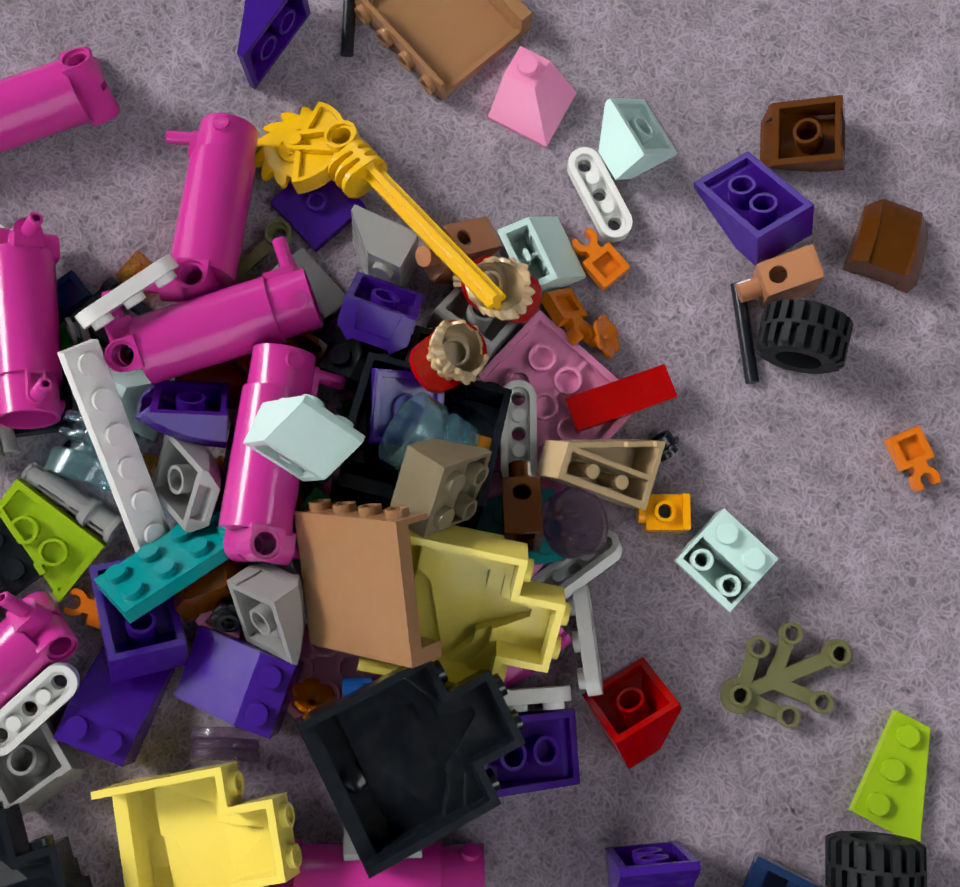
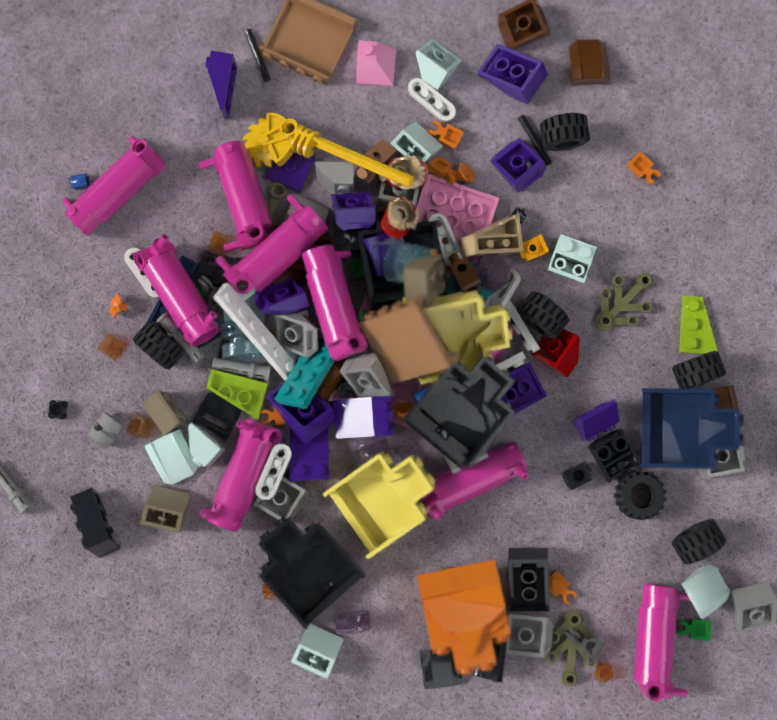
camera: 20 degrees left, 5 degrees up
(128, 293) = (231, 254): white plate -> none
(303, 436) = (350, 286): light aqua slope -> none
(620, 398) = (487, 201): red tile -> none
(634, 638) = (543, 315): none -> black tyre
(701, 361) = (519, 165): none -> dark purple slope
(783, 277) = (548, 100): nougat torso -> none

